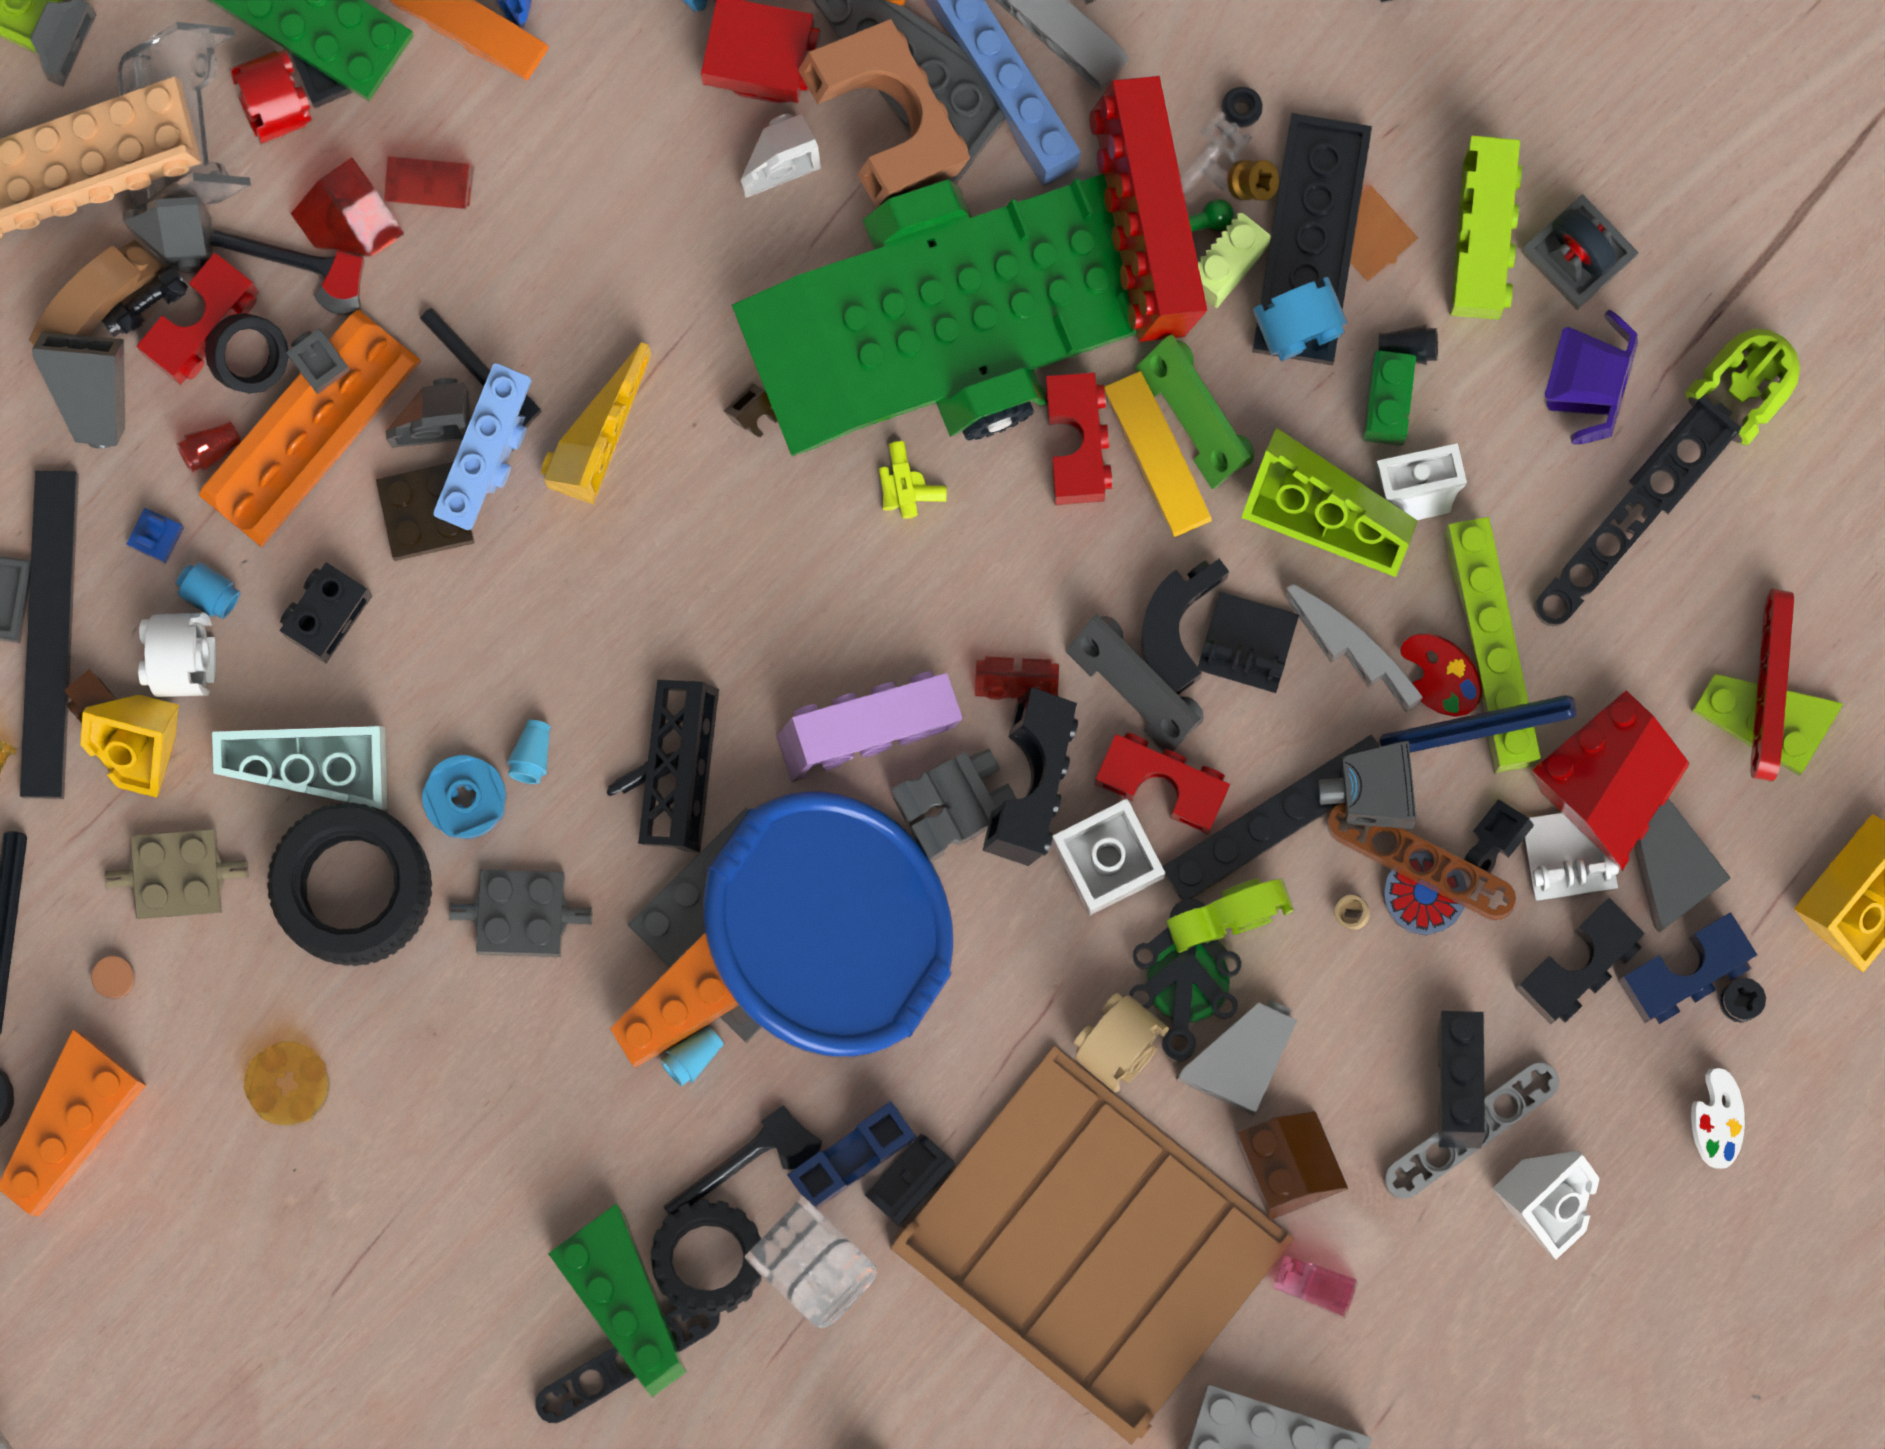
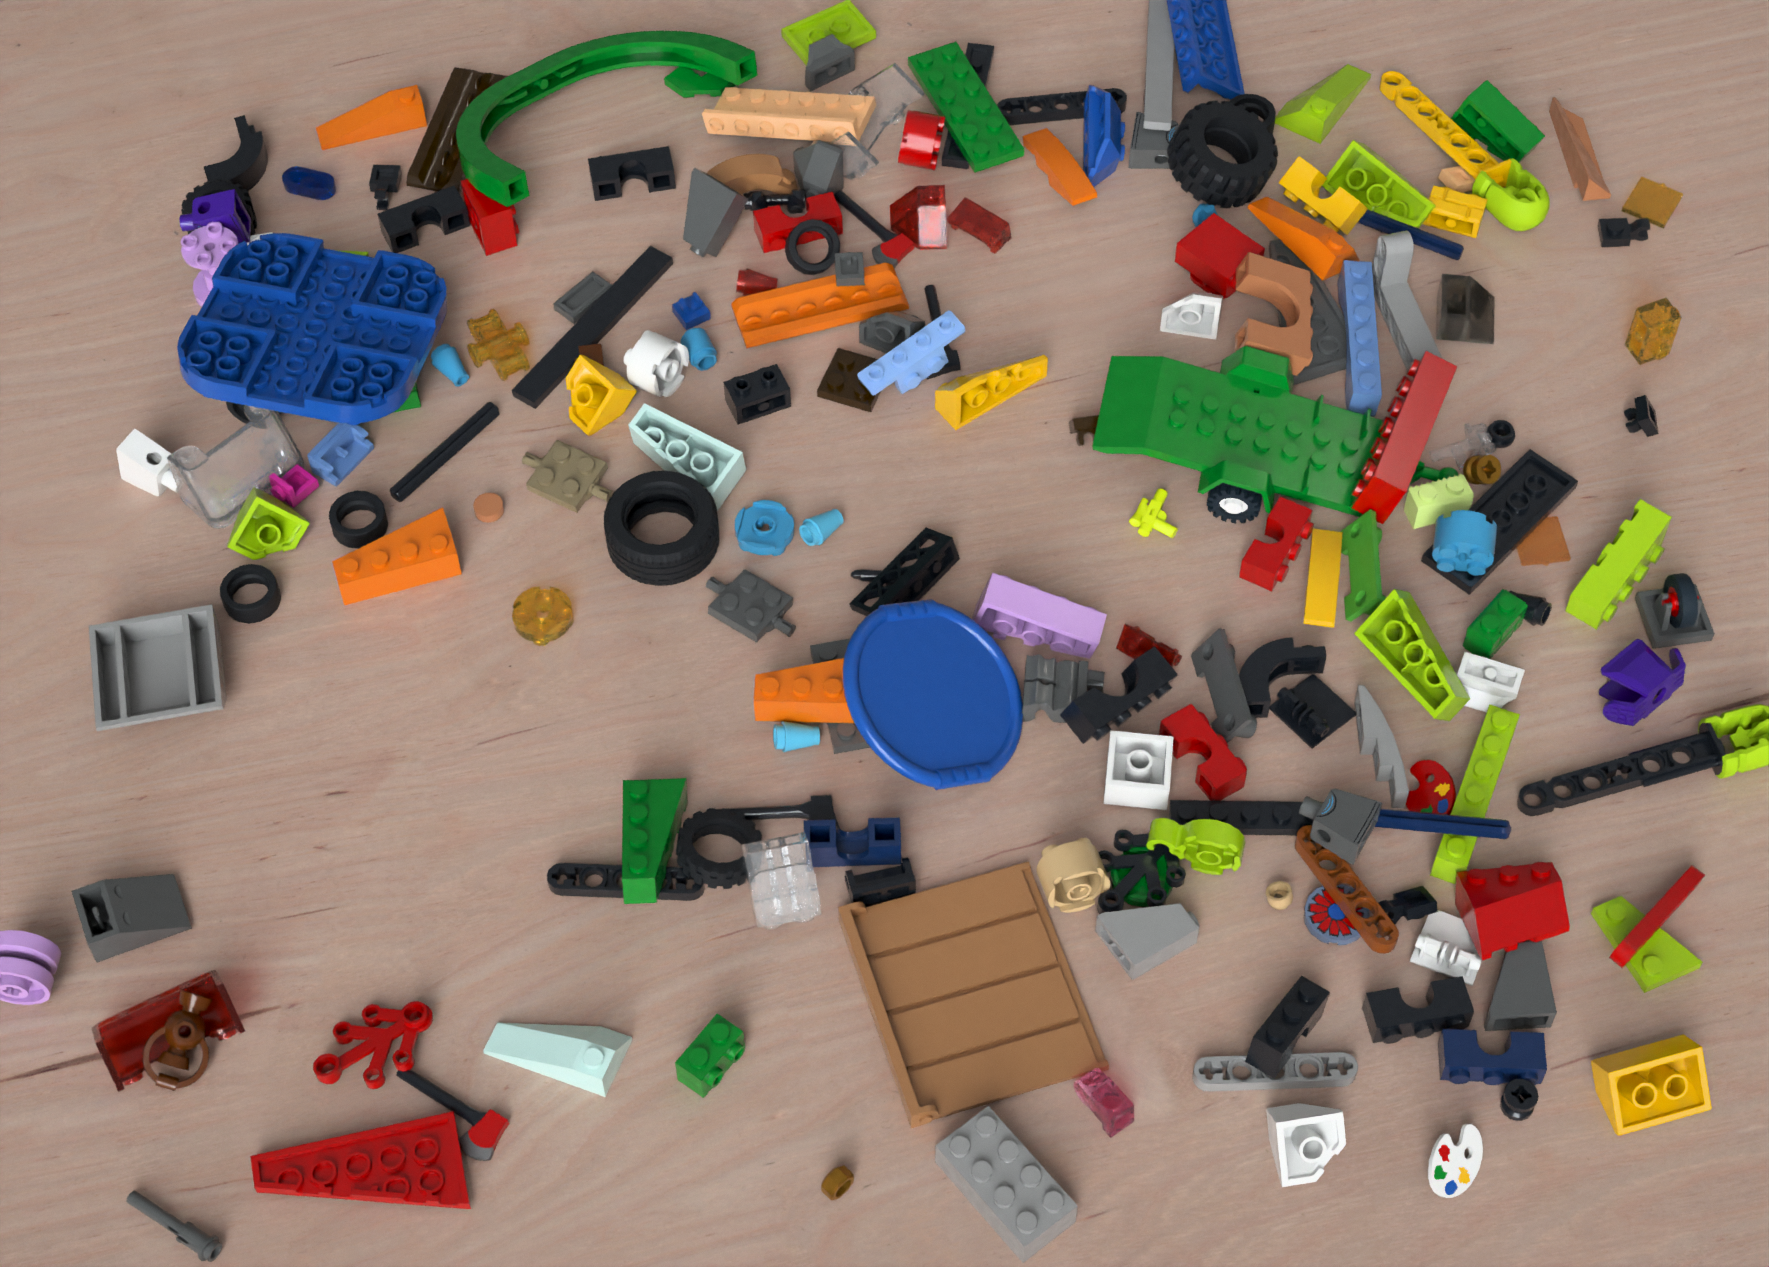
camera: 30 degrees right, 25 degrees down
(1290, 1162) = (1137, 1013): reddish brown slope -> none

